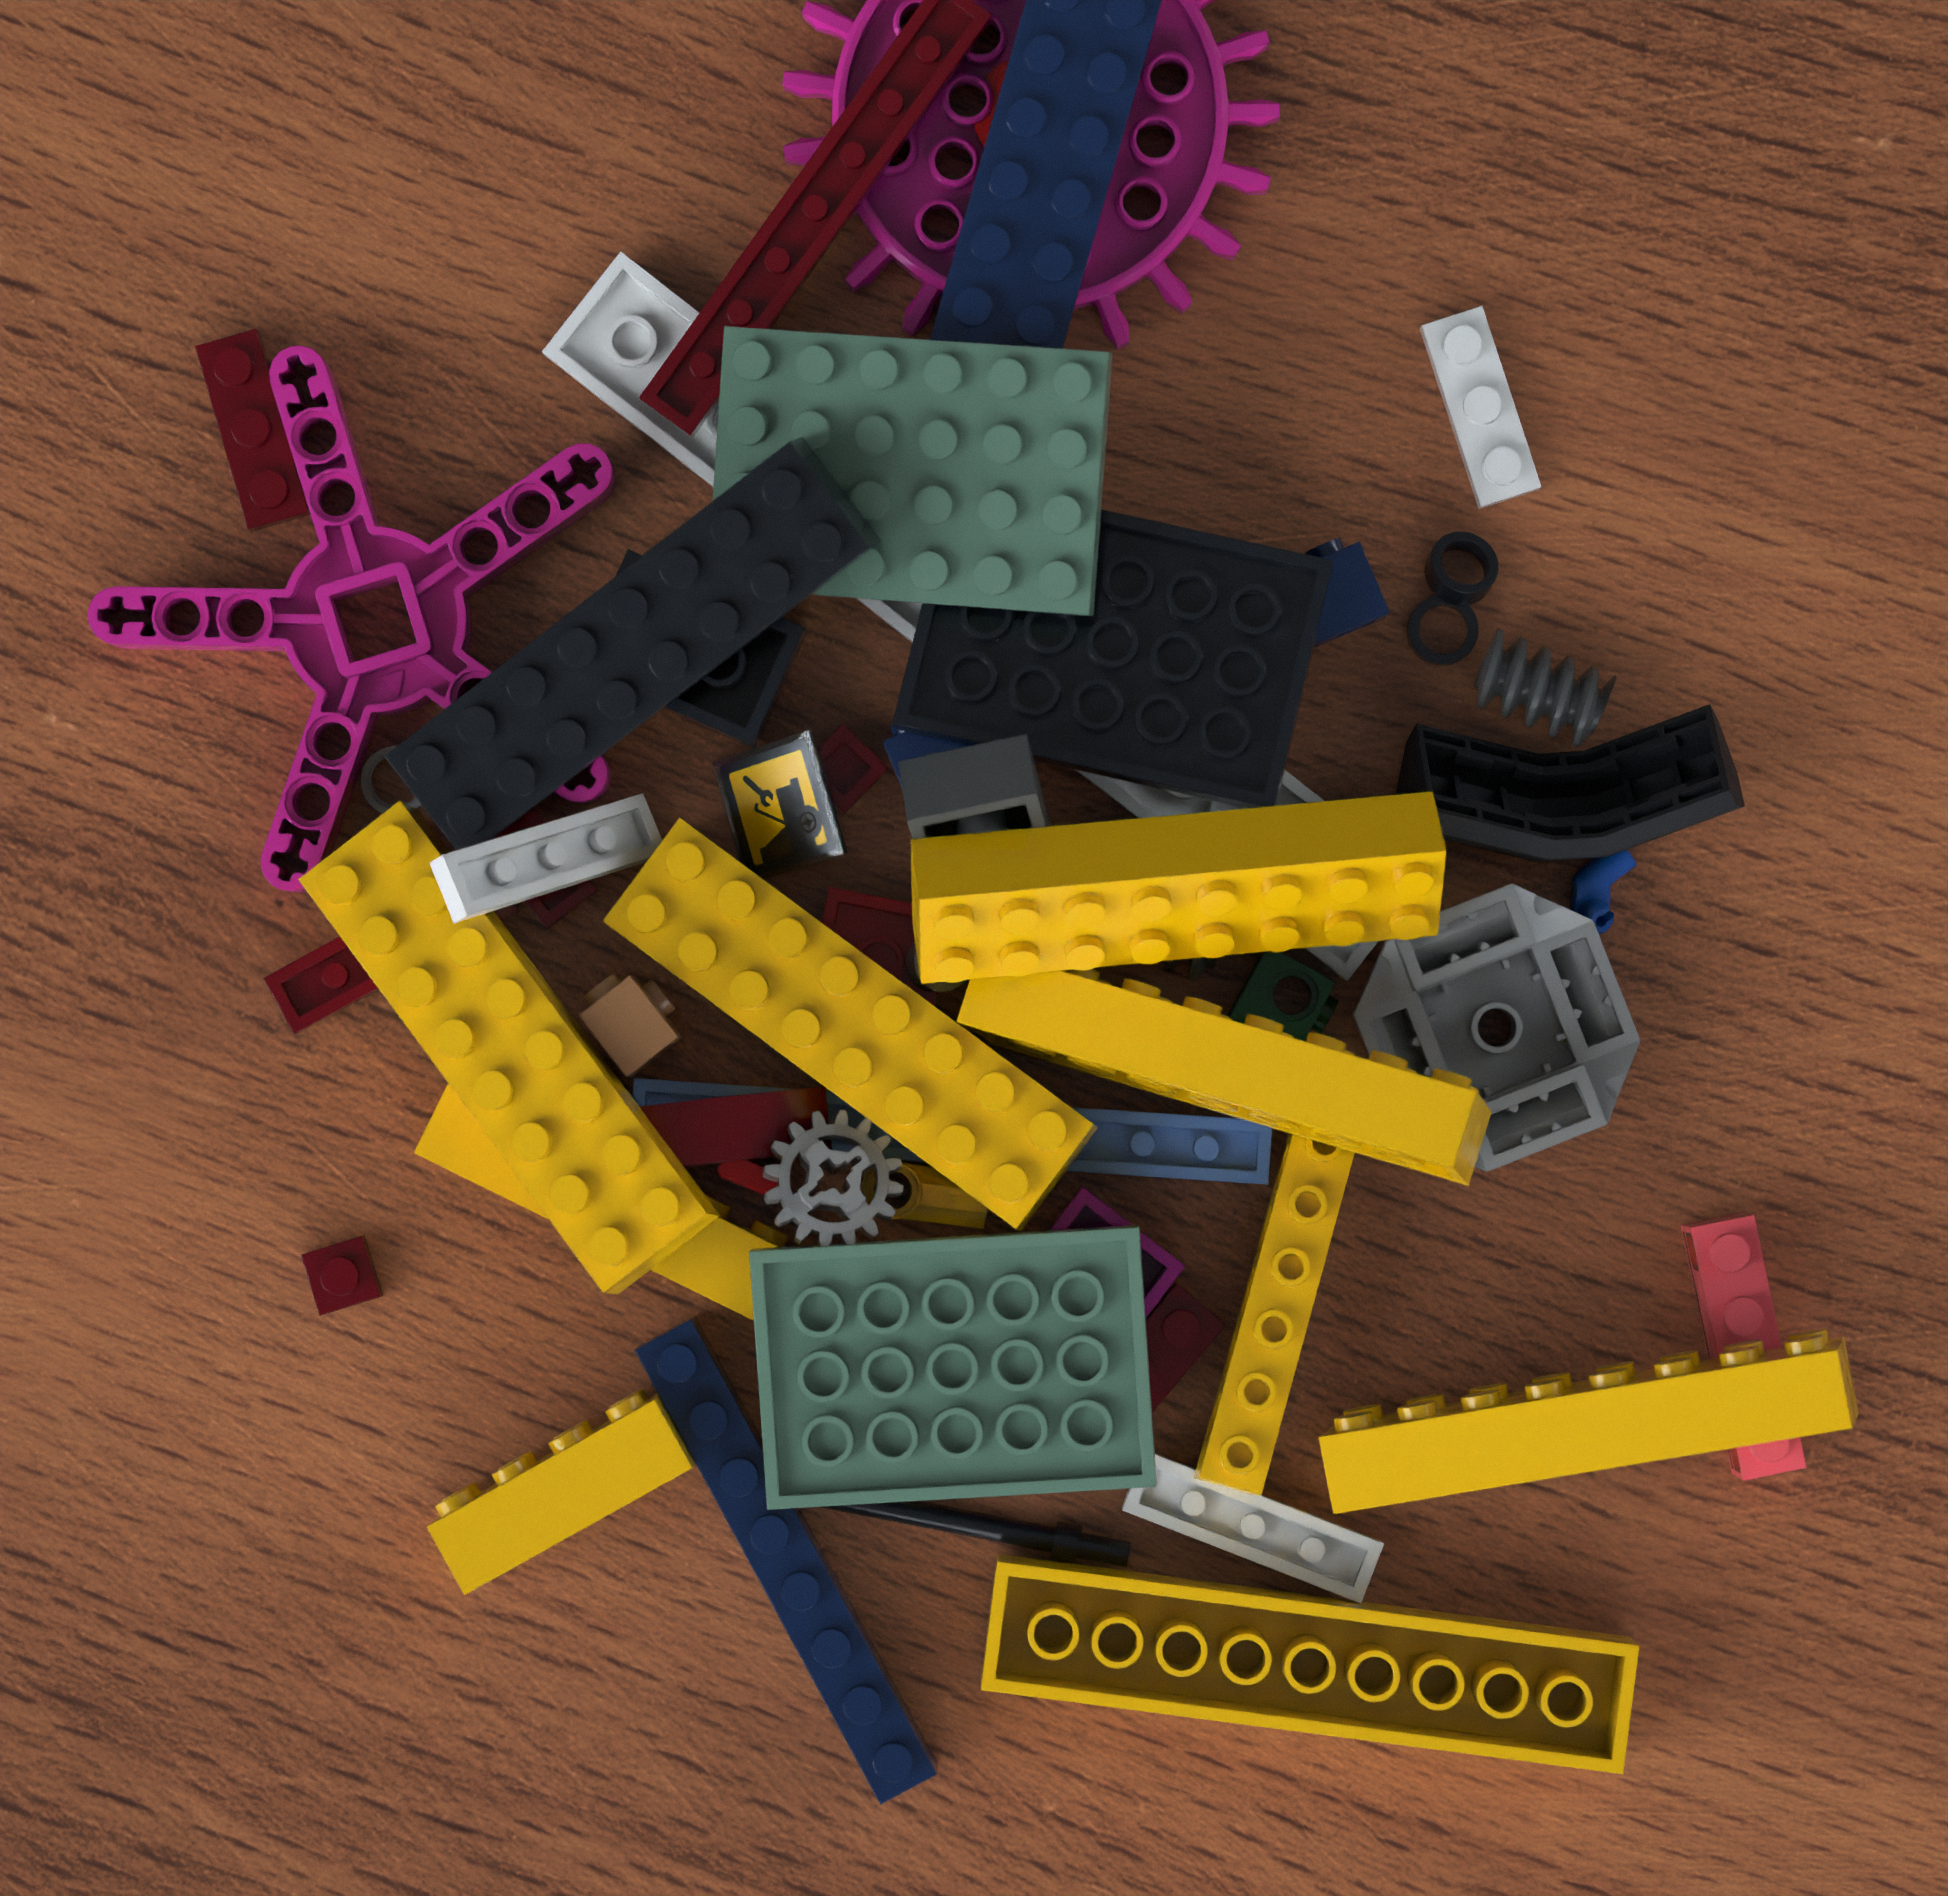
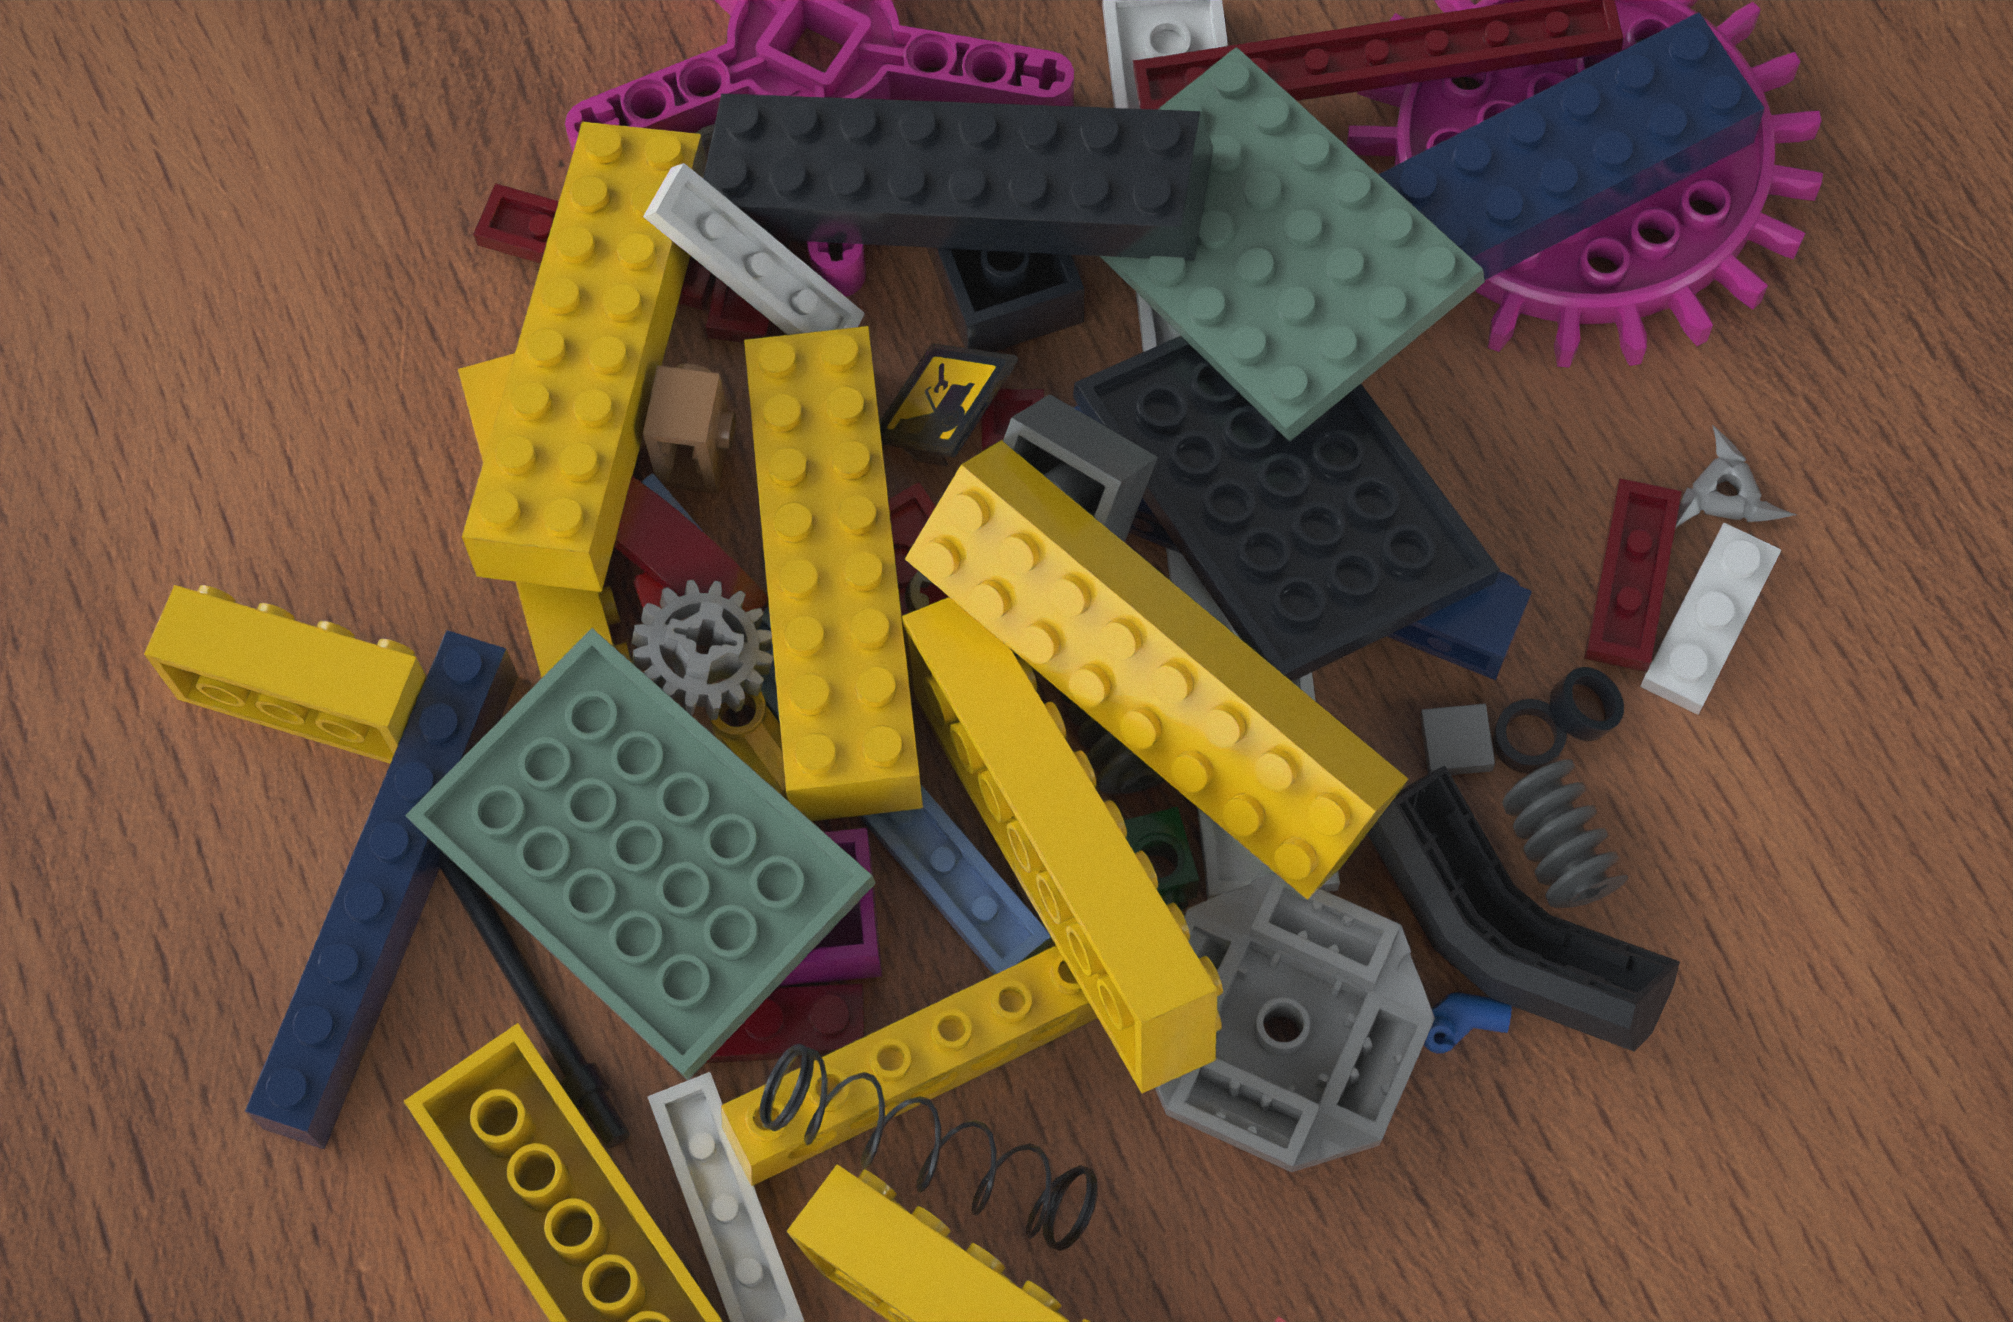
camera: 50 degrees right, 20 degrees down
(342, 1275) = (327, 416): dark red plate -> none
(1268, 1422) = (1051, 1200): none -> black piece
(1386, 314) = (1729, 468): none -> light grey piece
(1396, 685) = (1457, 739): none -> light grey tile
(1397, 433) = (1633, 575): none -> dark red plate

